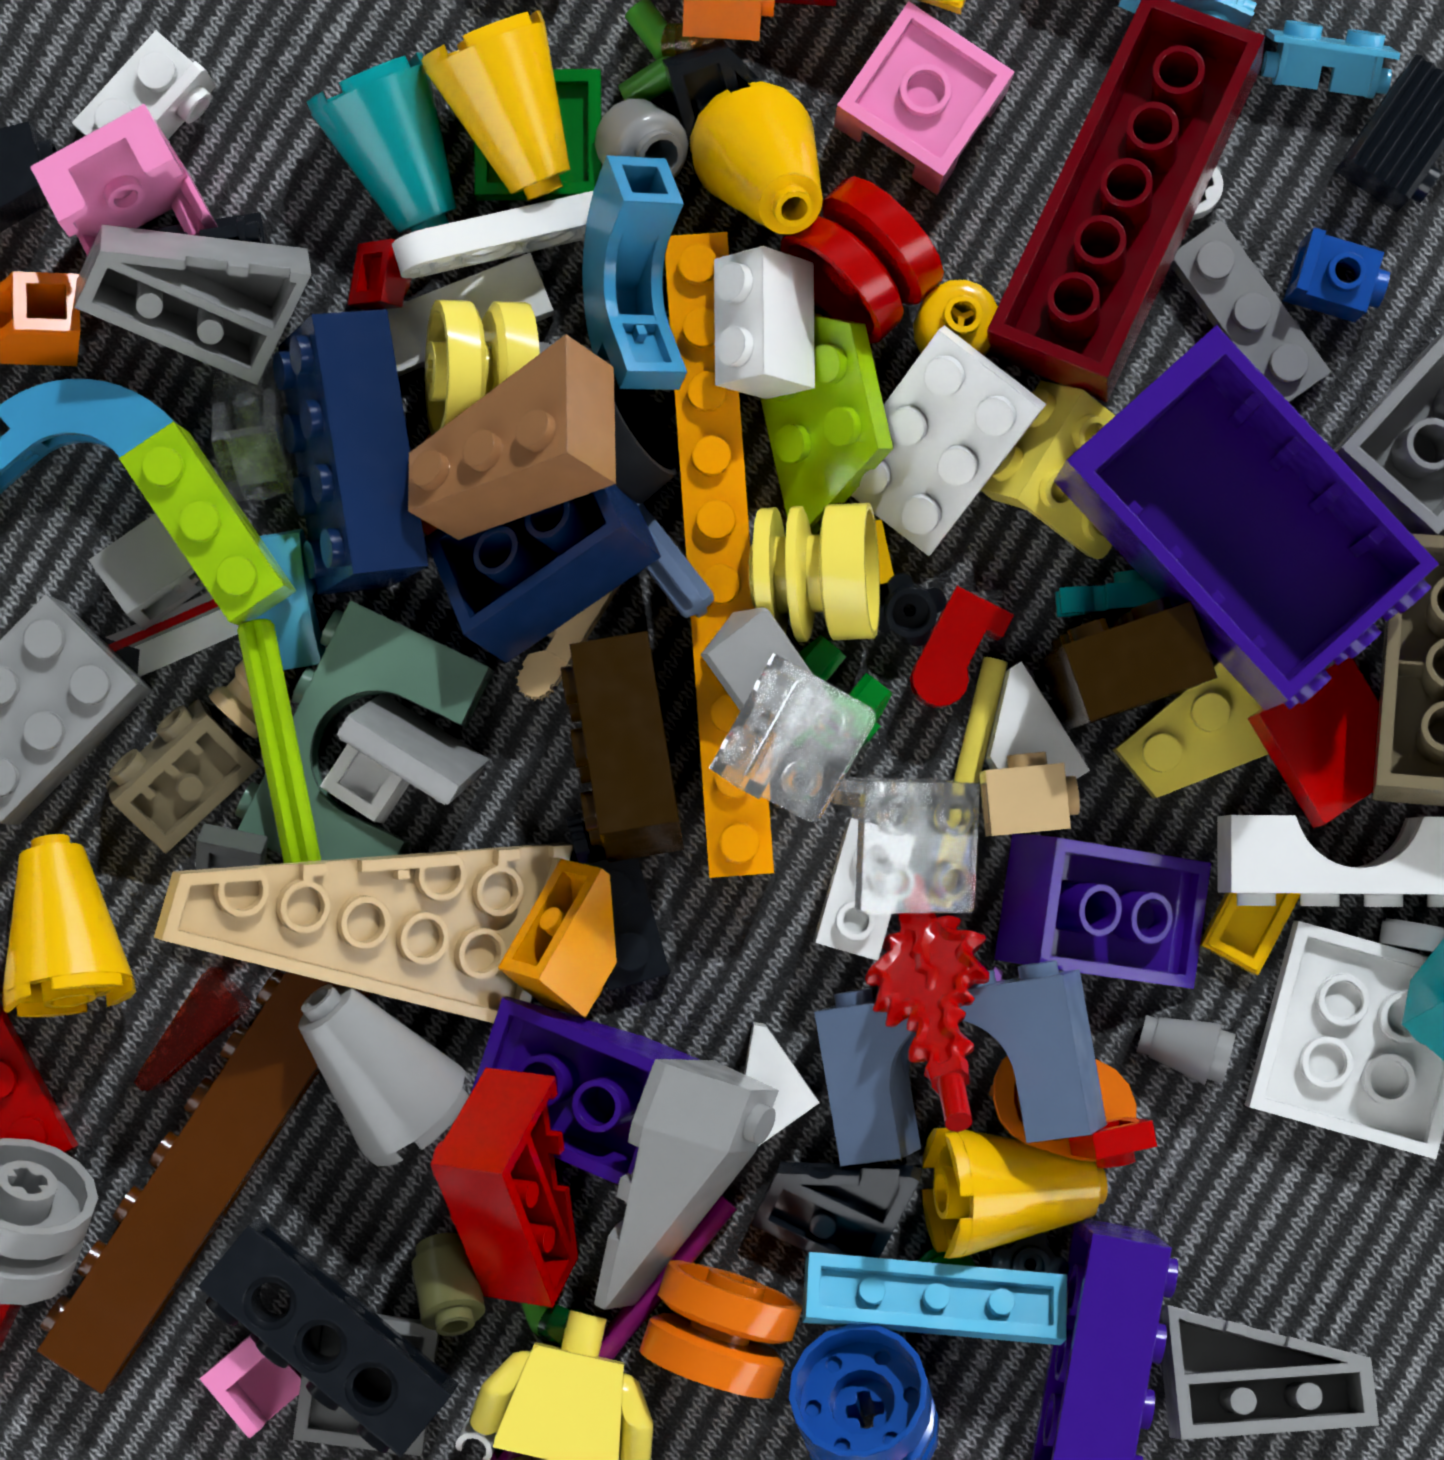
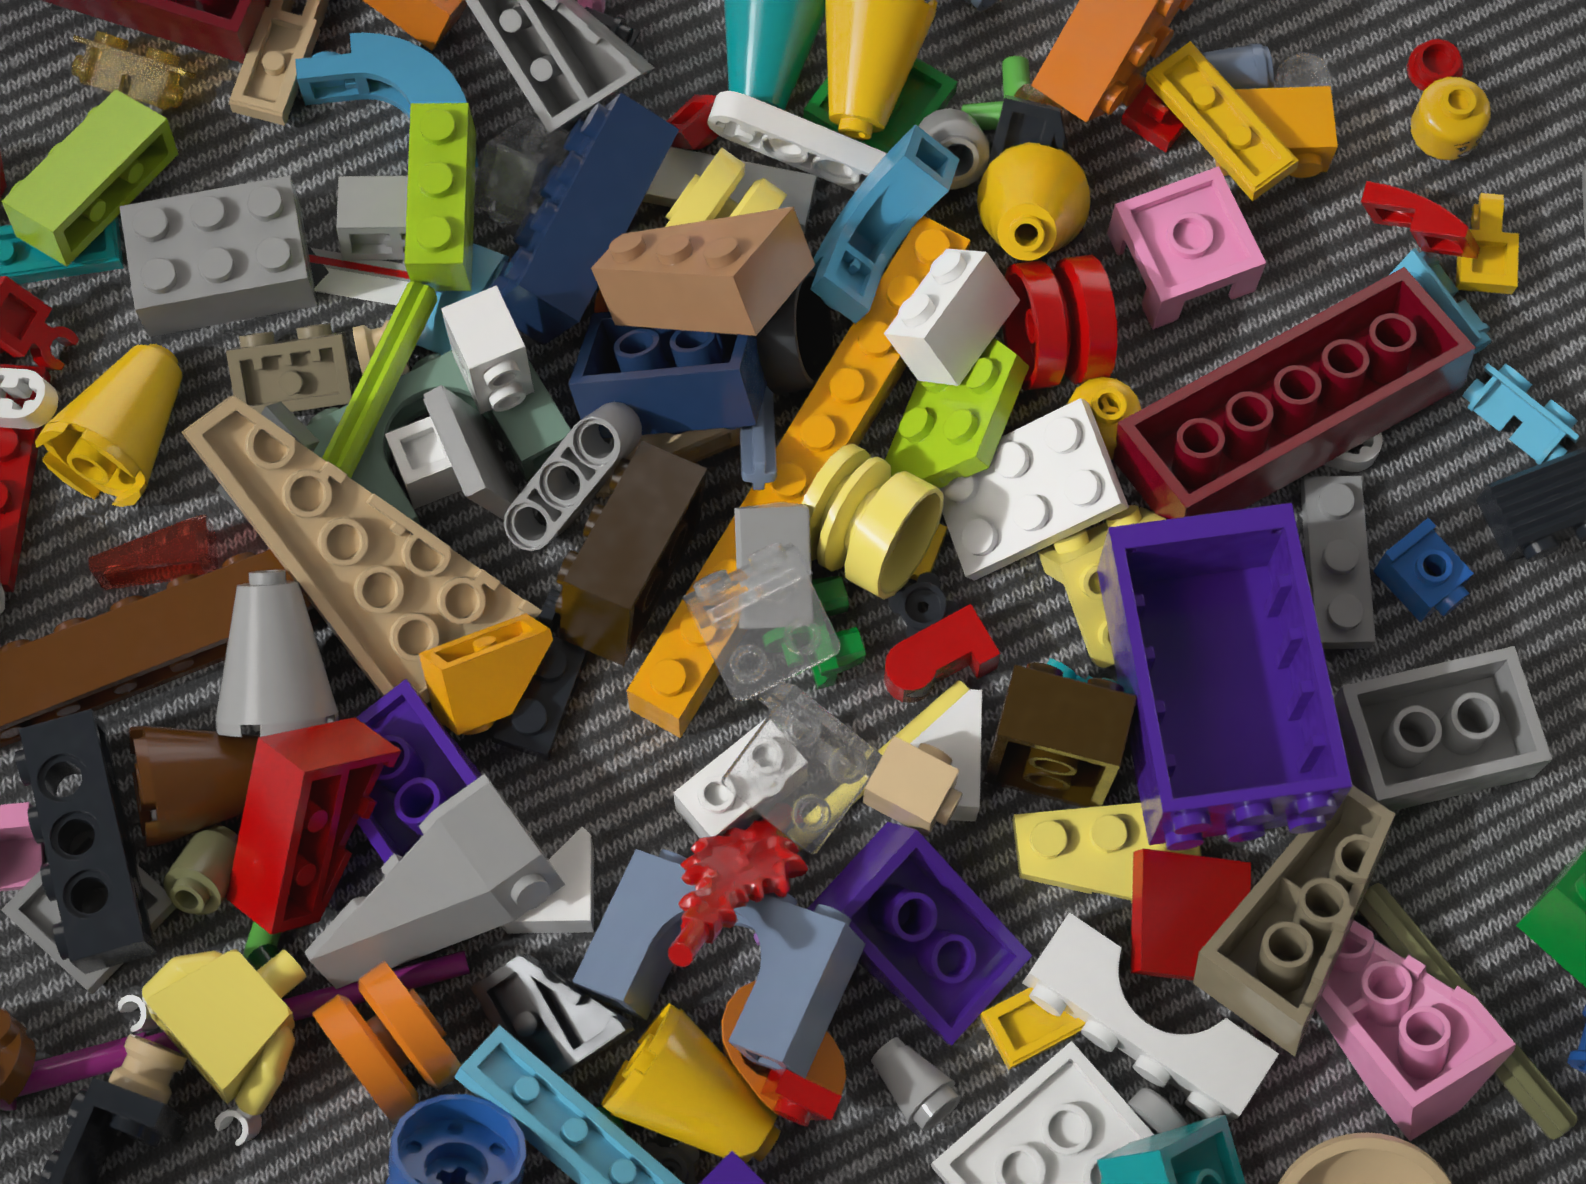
camera: 35 degrees right, 15 degrees down
(368, 653) = (488, 350): none -> white brick
(377, 1216) = (188, 779): none -> reddish brown cone
(522, 711) = (552, 490): none -> light grey beam

